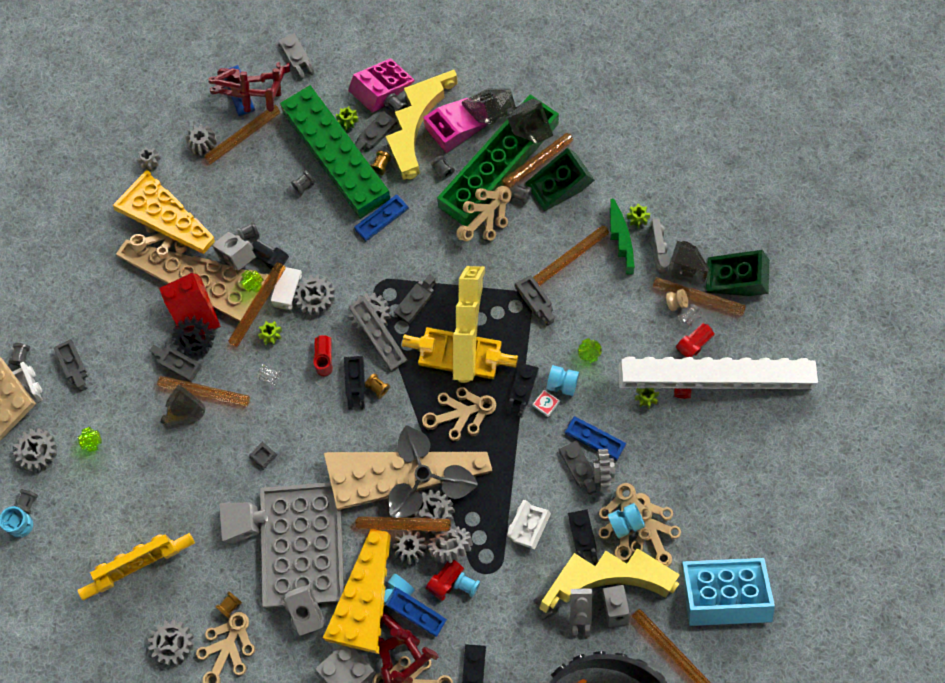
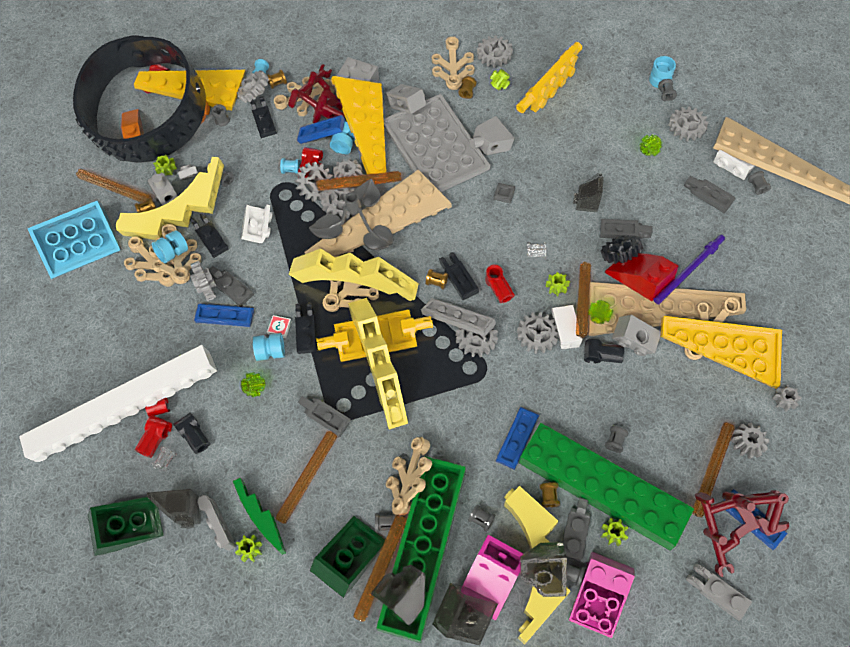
camera: 155 degrees right, 5 degrees down
(111, 310) = (709, 249): none -> dark purple bar
(188, 596) = (500, 79): none -> lime gear
(205, 391) = (583, 219): clear orange axle -> none
(253, 231) = (637, 366): dark grey bush -> none
(412, 101) = (545, 569): none -> clear smoke slope
(415, 300) = (441, 369): dark grey hinge -> none
(457, 412) = (348, 268): none -> light yellow arch
(603, 641) = (165, 165): none -> lime gear
(641, 599) = (145, 206): none -> pearl gold bush
(659, 333) = (191, 431): none -> black piece
(677, 300) = (181, 468): tan wheel -> none
(701, 297) = (165, 485): clear orange axle -> none

